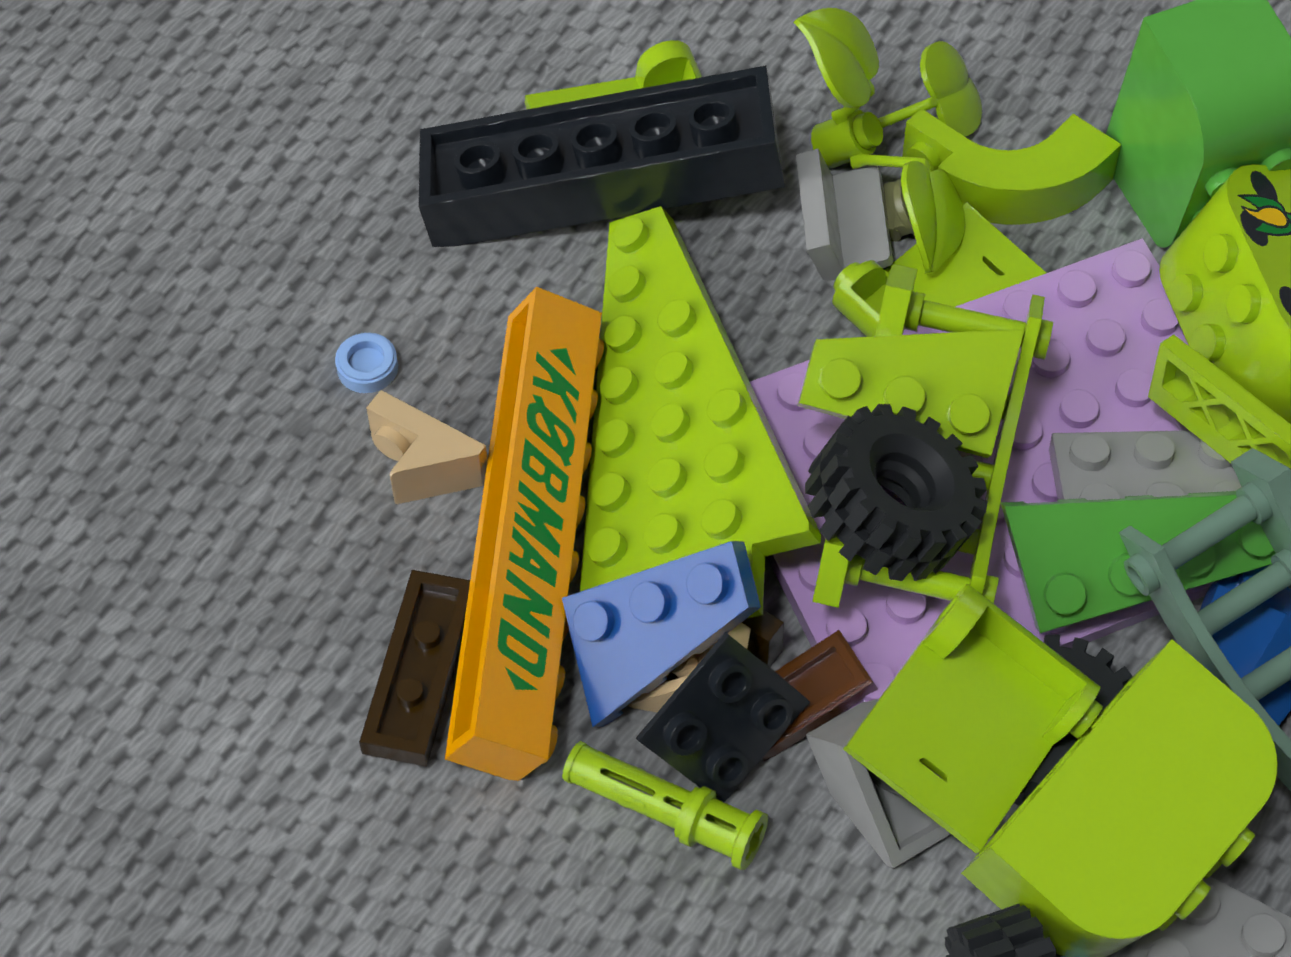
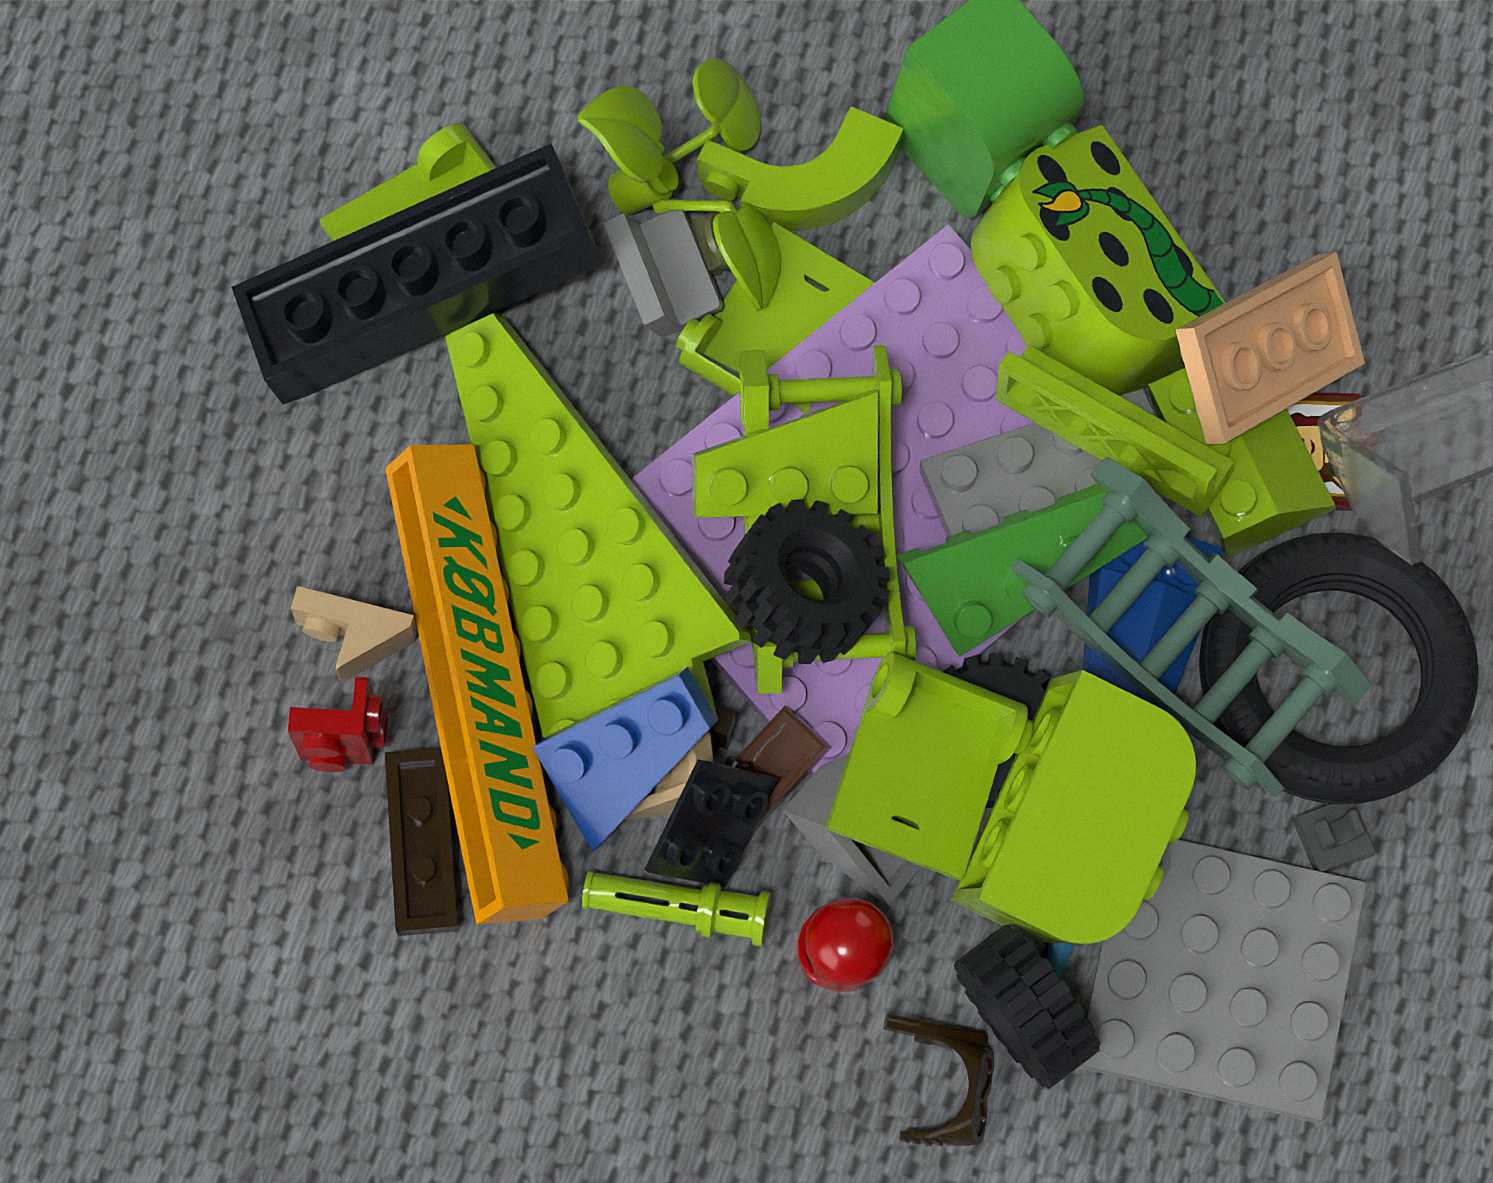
camera: 20 degrees left, 15 degrees up
(366, 362) = (265, 548): light blue tile -> none
(371, 532) = (340, 736): none -> red bracket
(833, 891) = (846, 944): none -> red helmet

